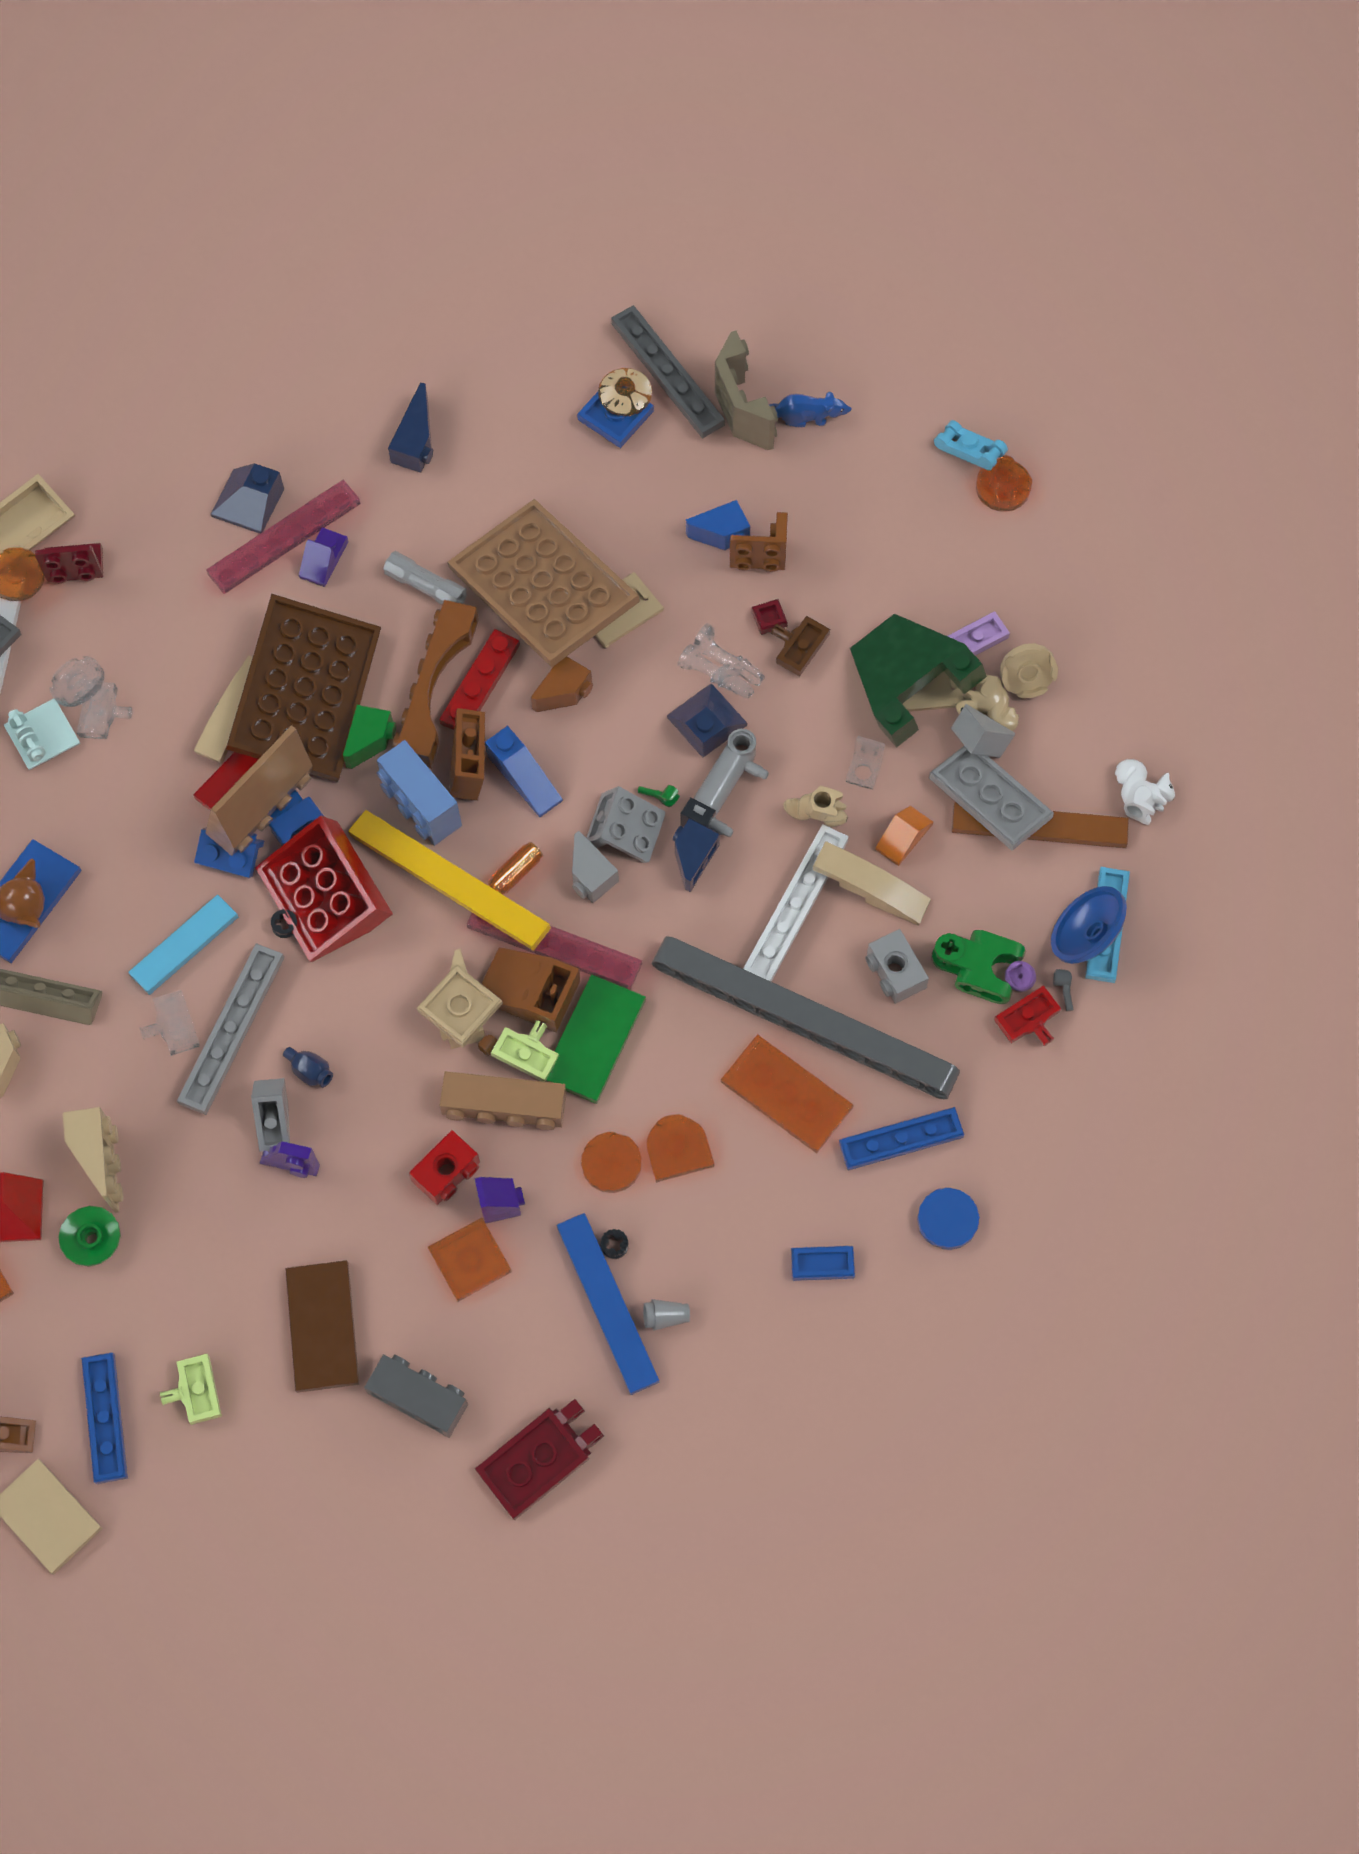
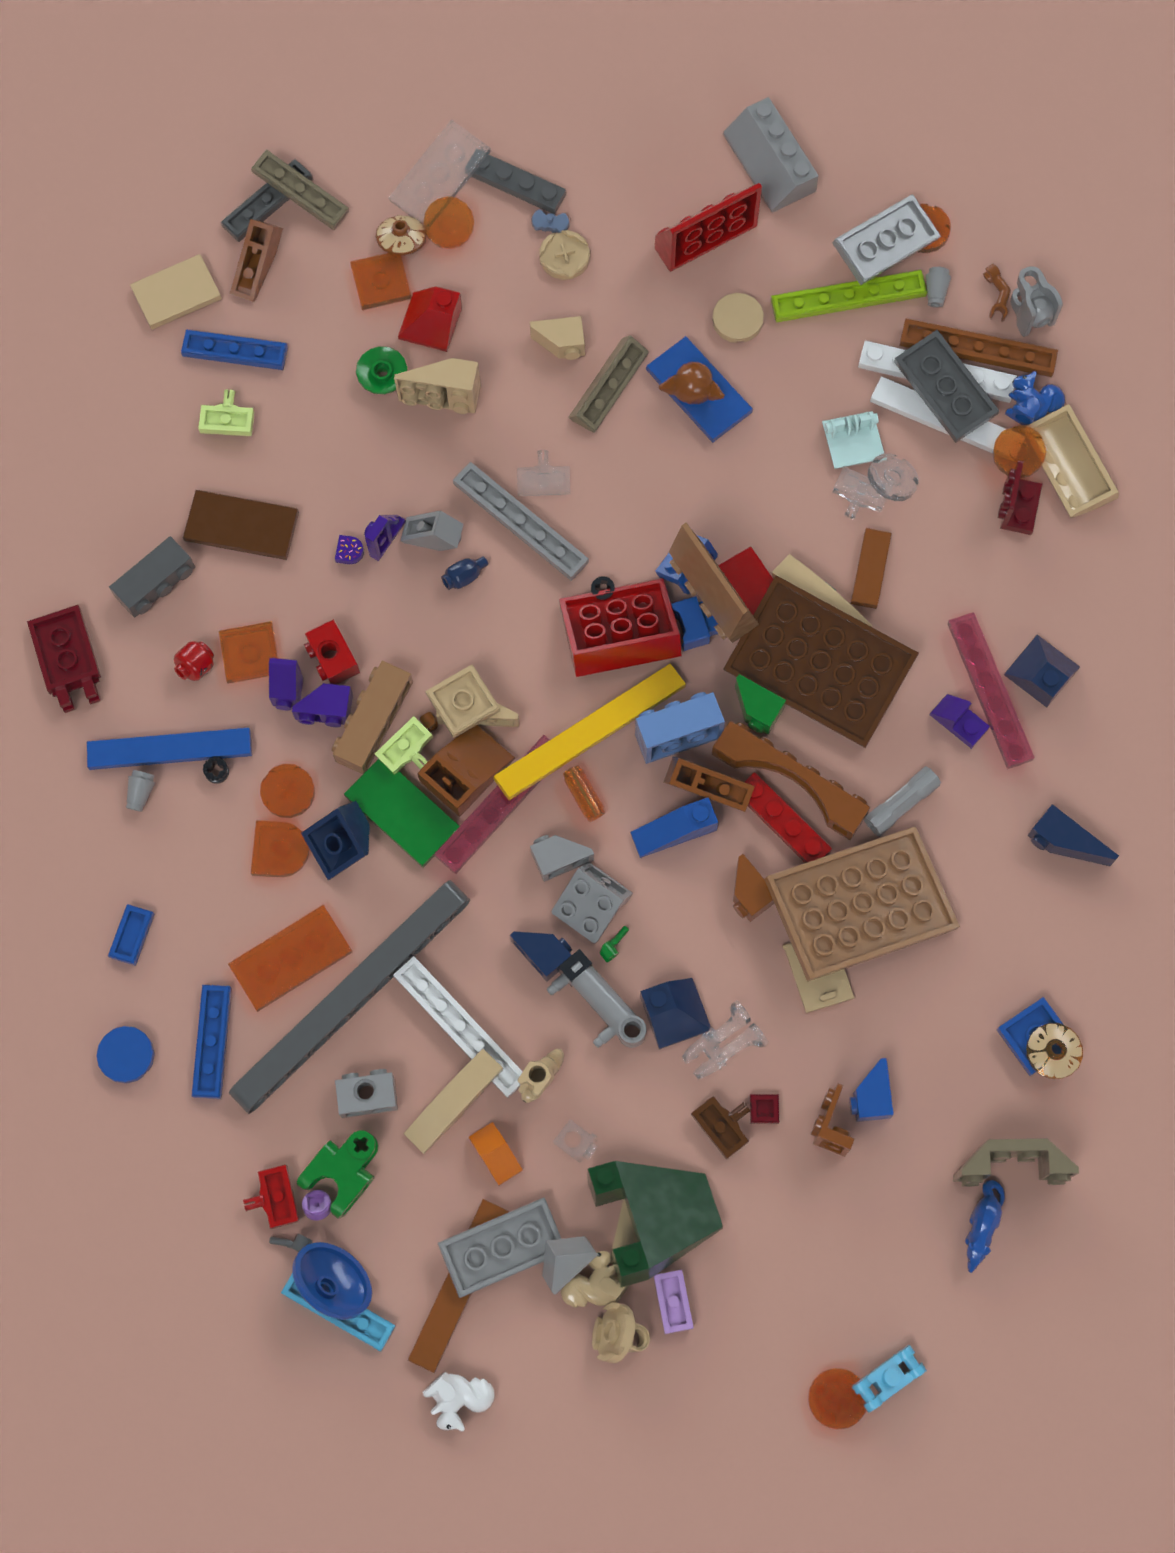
camera: 110 degrees right, 5 degrees up
(183, 678) = (871, 568): none -> dark orange tile
(183, 944) = (612, 504): medium azure tile -> none
(317, 1197) = (349, 550): none -> dark purple tile
(501, 1310) = (193, 661): none -> red head
(503, 1151) = (326, 704): none -> dark purple slope
(648, 1083) = (339, 839): none -> dark blue slope
(668, 371) = (1070, 1103): dark grey plate -> none

